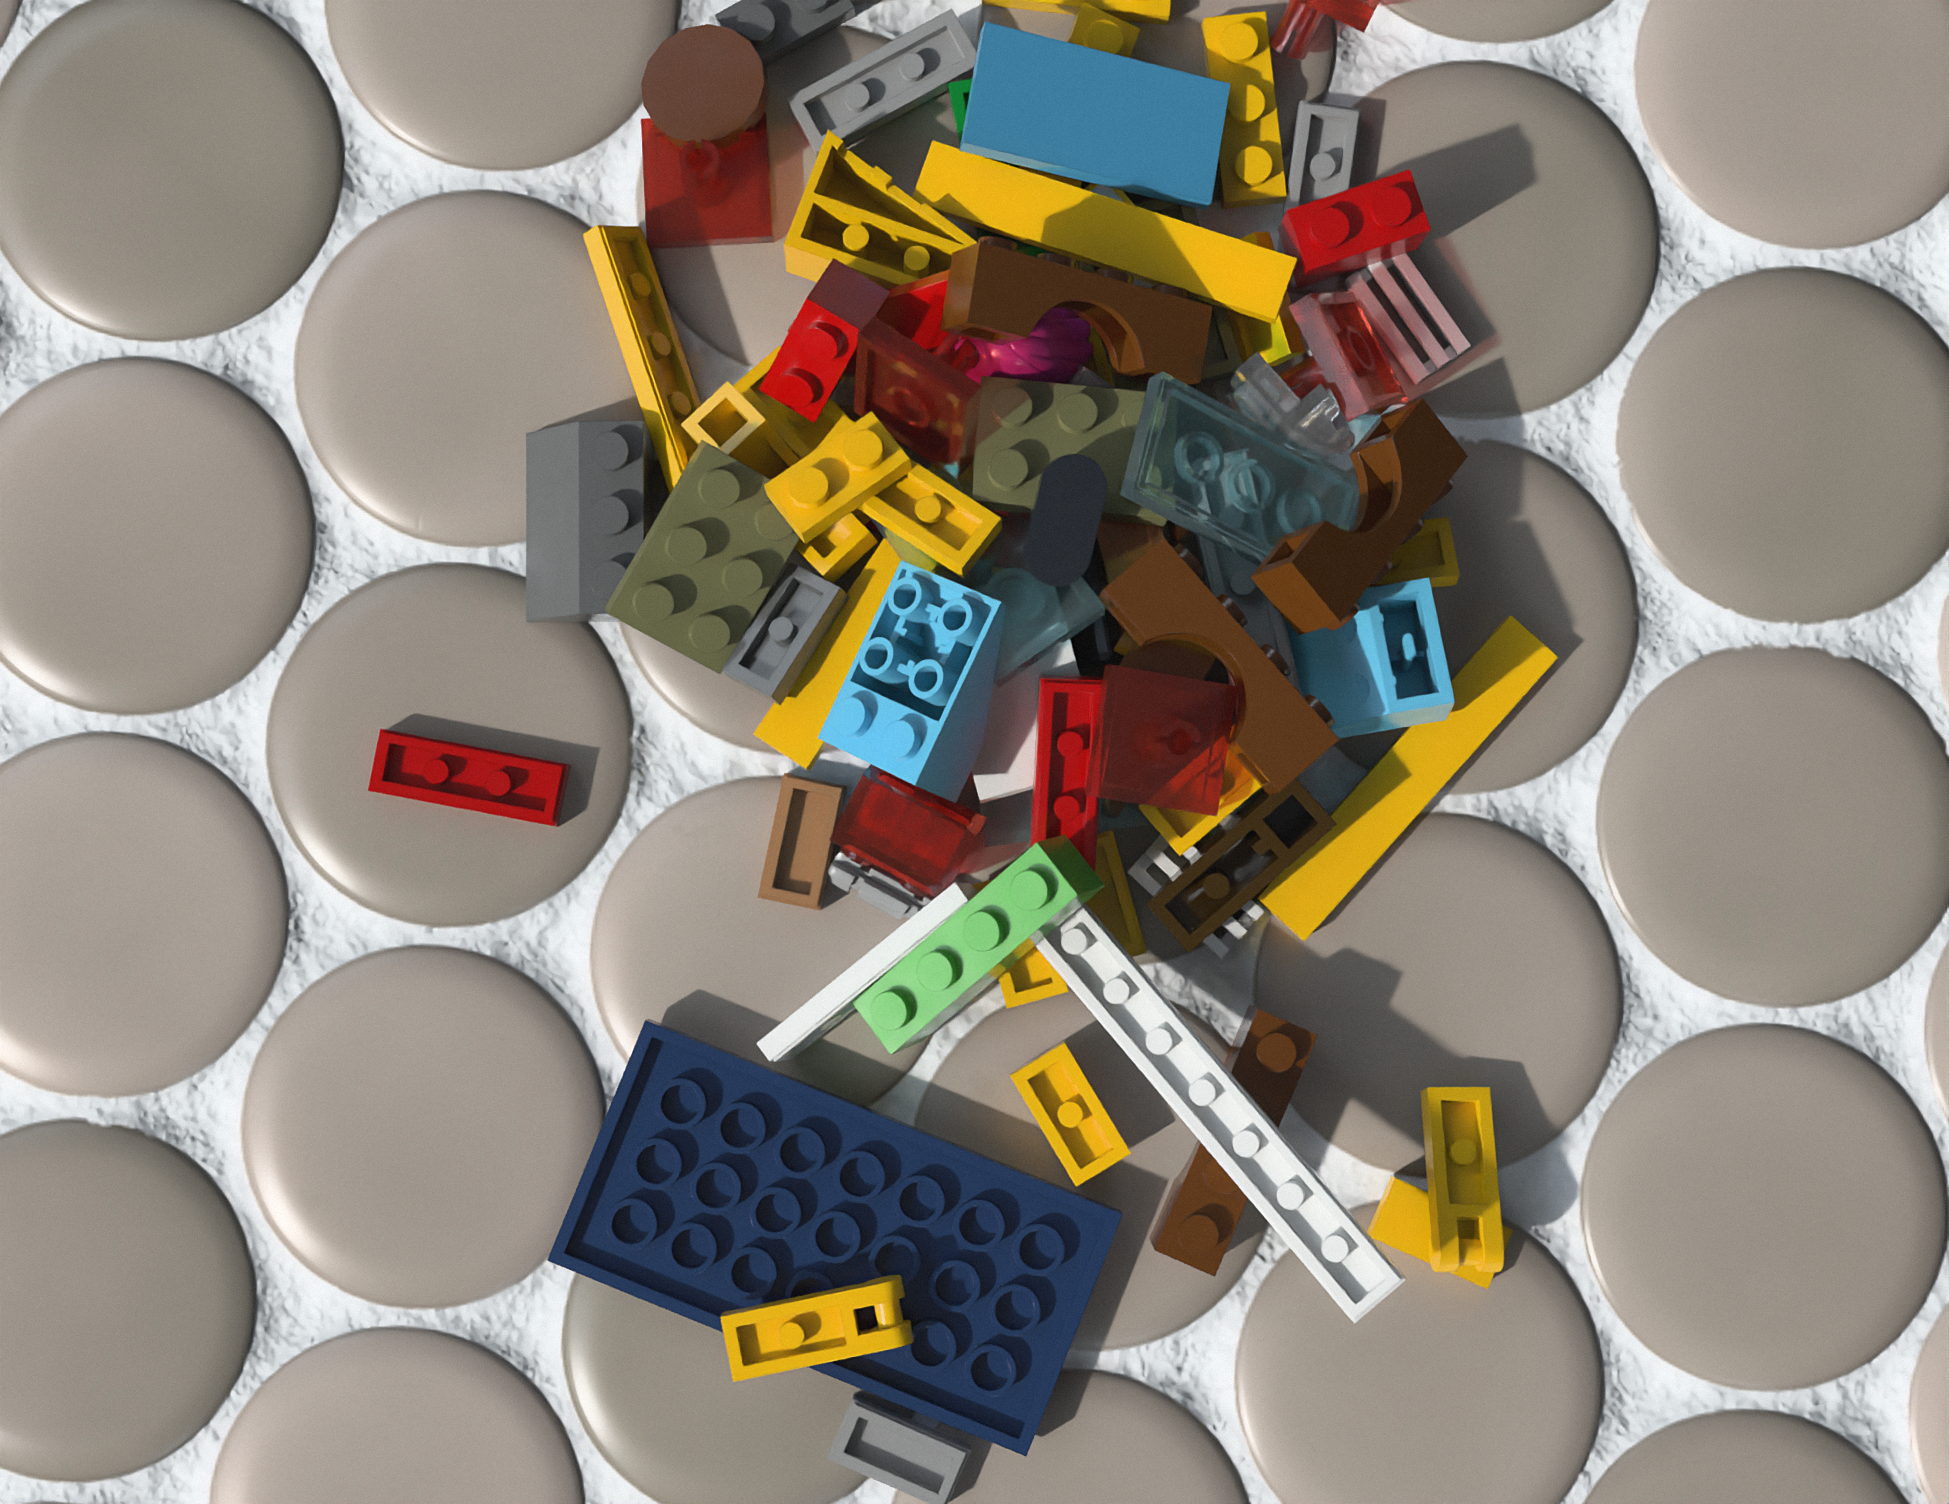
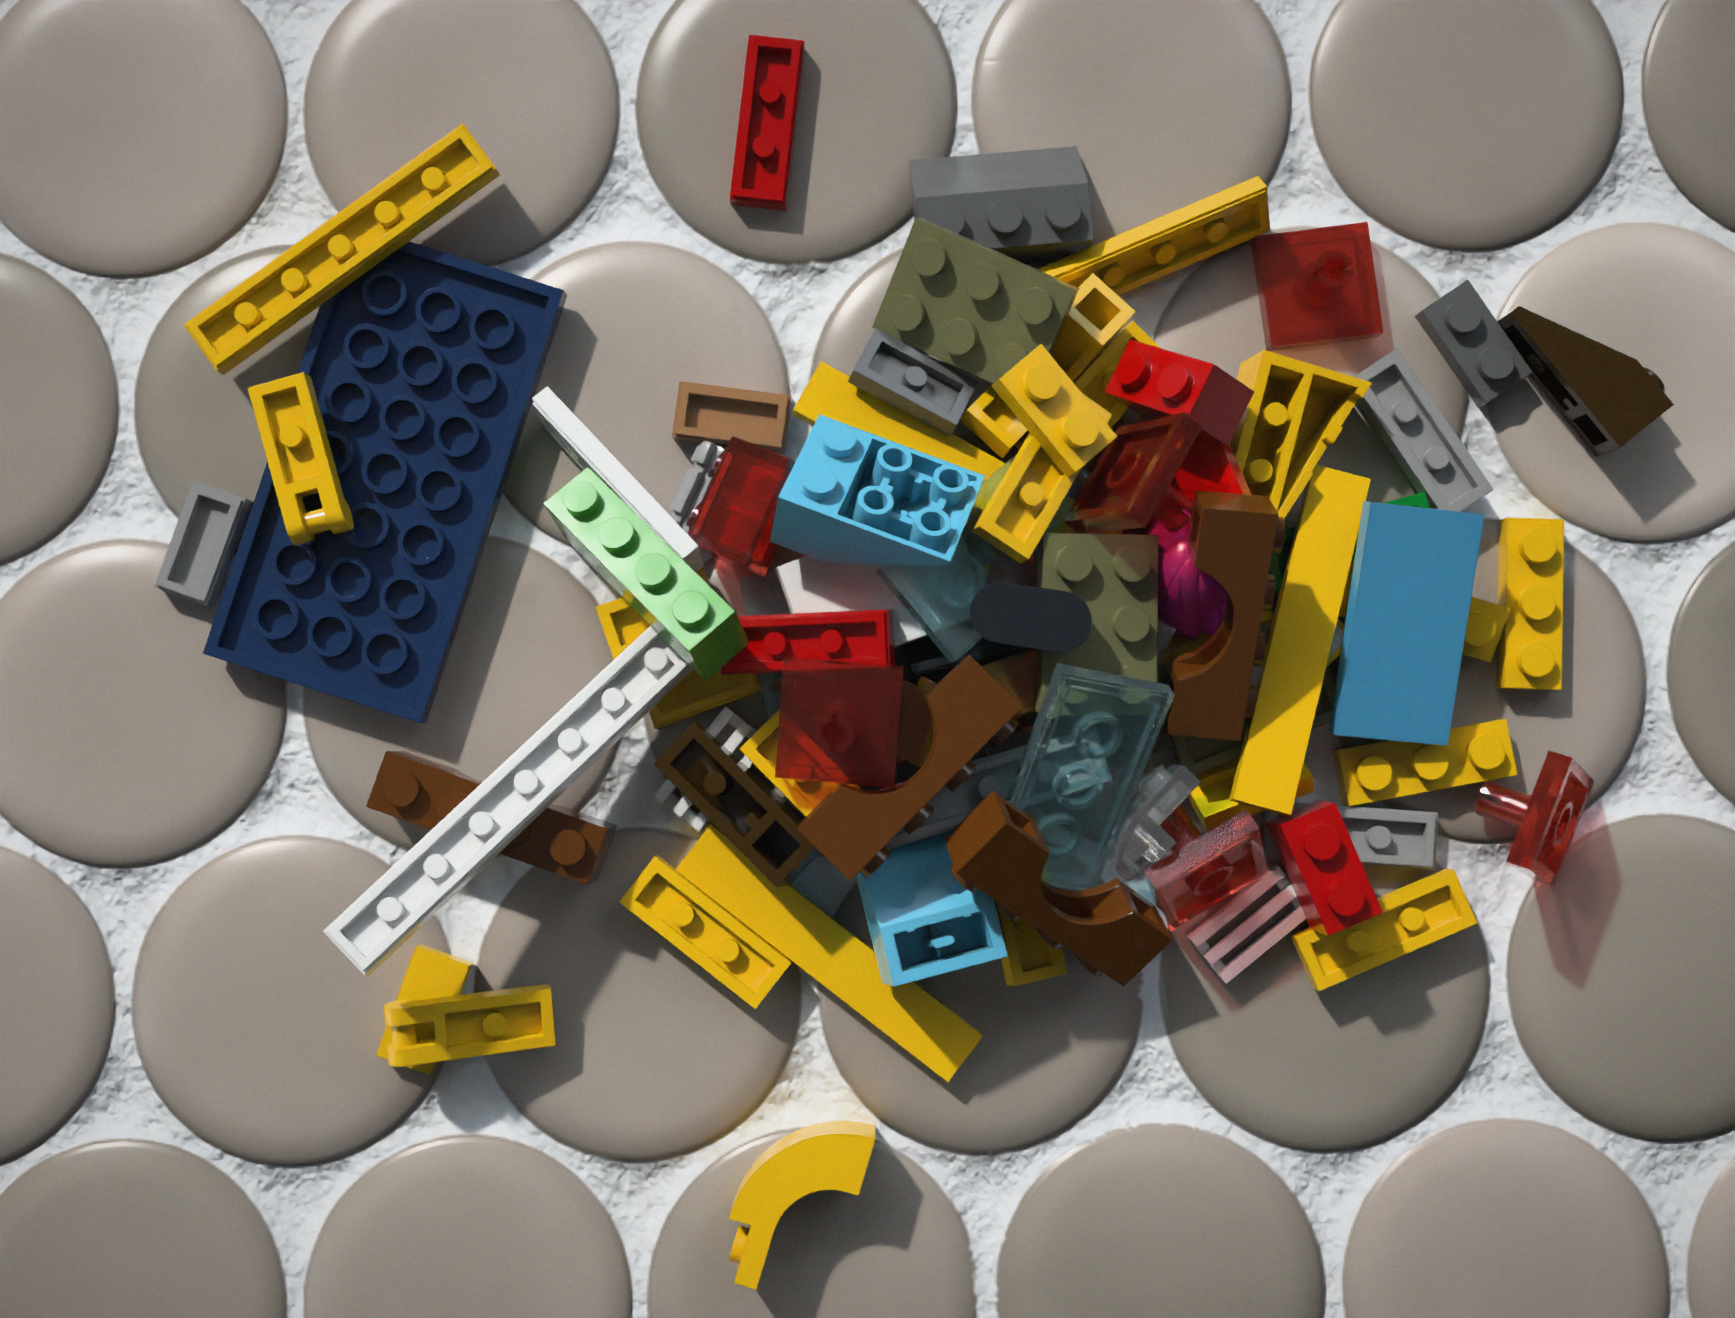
camera: 85 degrees right, 0 degrees up
(580, 1268) = (341, 250): none -> yellow tile
(705, 86) = (1401, 274): reddish brown tile -> none
(1069, 1113) = (507, 670): yellow plate -> none
(1375, 911) = (705, 931): none -> yellow plate
(1415, 138) = (1409, 921): none -> yellow plate
(1637, 828) = (801, 1163): none -> yellow arch

